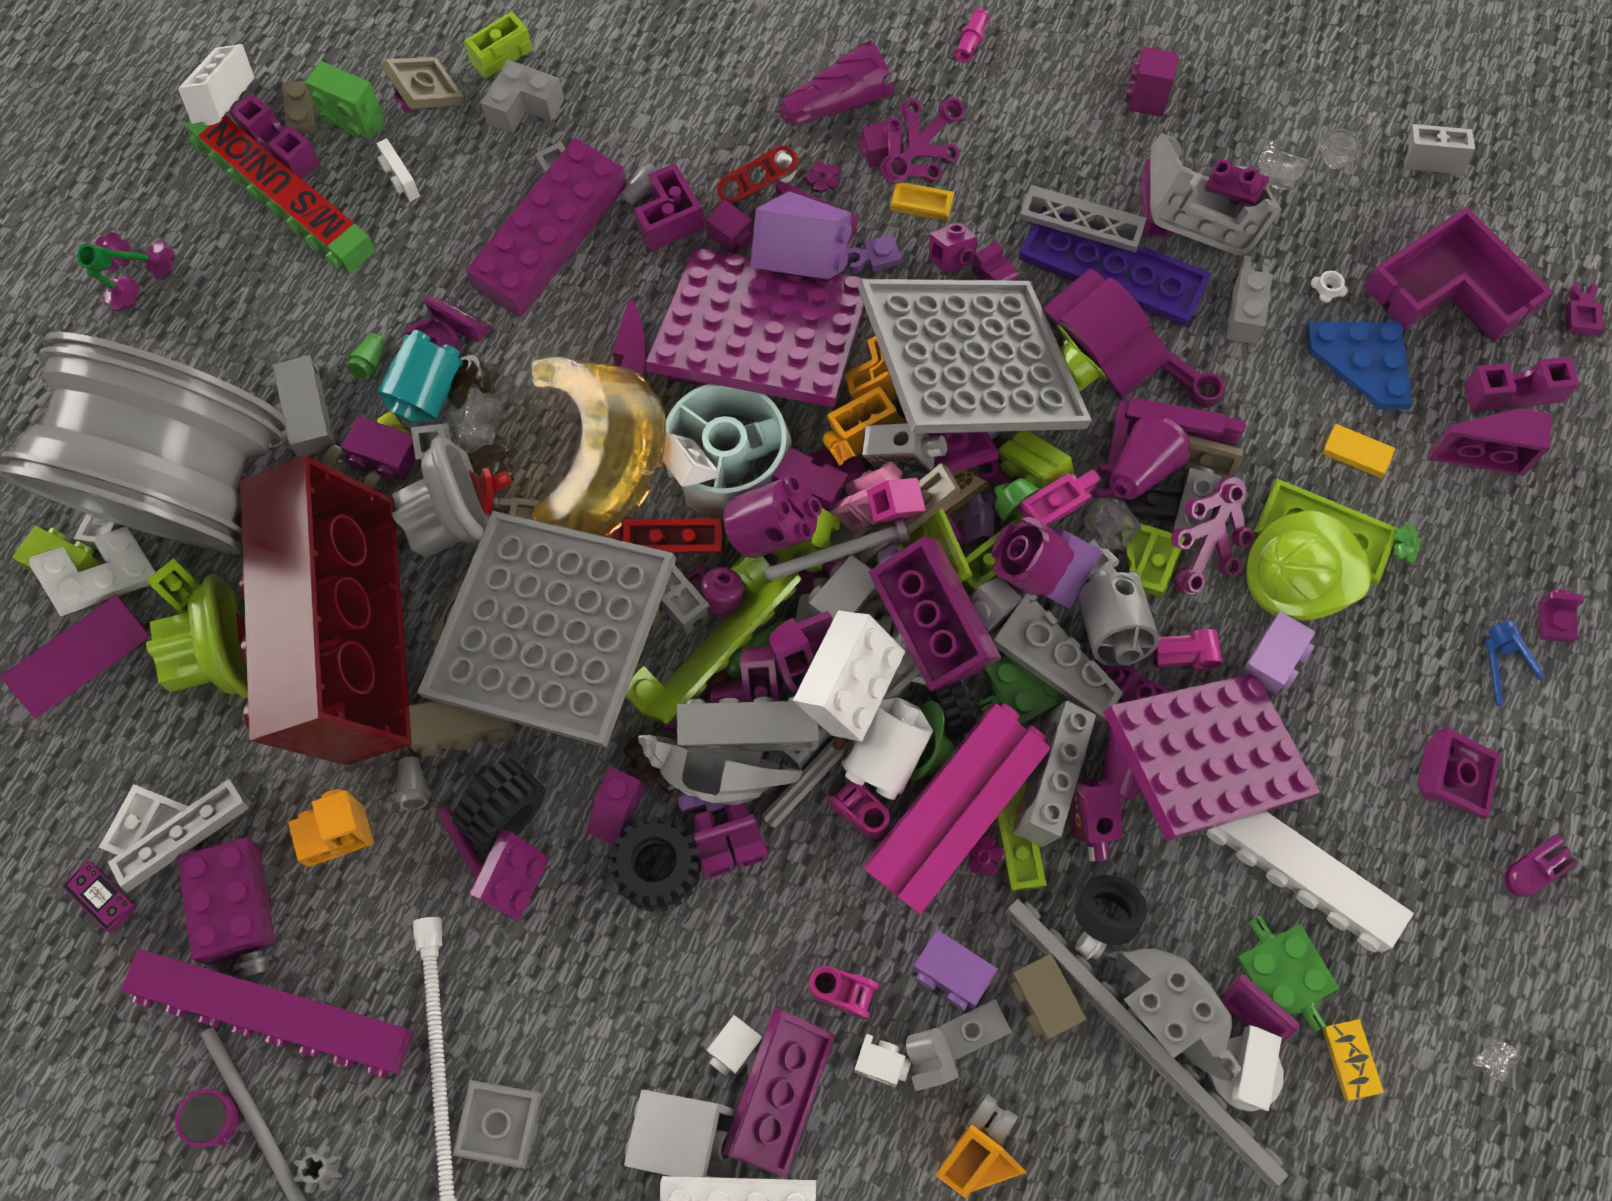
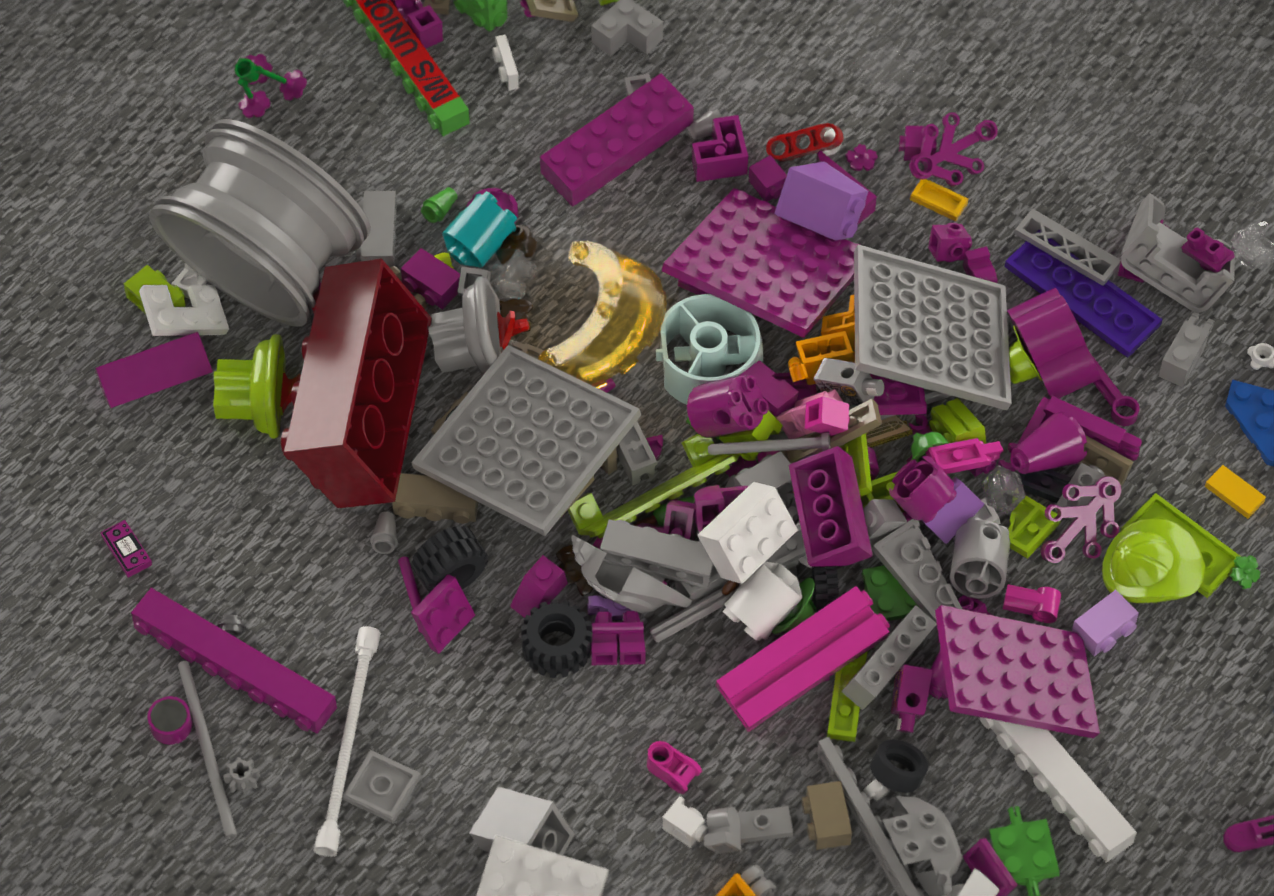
camera: 15 degrees right, 10 degrees down
(138, 817) = (174, 505): white wing -> none
(174, 584) = (245, 335): lime slope -> none
(179, 835) = (201, 518): light grey fence -> none
(226, 901) = (223, 574): magenta brick -> none
(330, 829) = (317, 547): light orange brick -> none
(458, 318) = (521, 193): magenta slope -> none
(630, 344) = (657, 247): magenta slope -> none
(677, 535) = (655, 406): red brick -> none
(687, 461) = (673, 347): white slope -> none
(722, 590) = (671, 456): magenta head -> none
(735, 1048) = (579, 783): white brick -> none
(779, 1093) = (602, 815): magenta plate -> none
(847, 84) = (907, 87): magenta cone -> none
(856, 804) = (726, 642): dark pink piece -> none
(877, 253) = (887, 231): medium lavender plate -> none
(954, 971) = (762, 776): medium lavender brick -> none
(972, 35) = (1029, 73): dark pink pin -> none
(979, 522) = (897, 458): medium lavender plate -> none
(985, 855) = (816, 706): magenta plant -> none
(1152, 81) = (1170, 149): magenta brick -> none
(1458, 772) = (1218, 748): magenta slope -> none

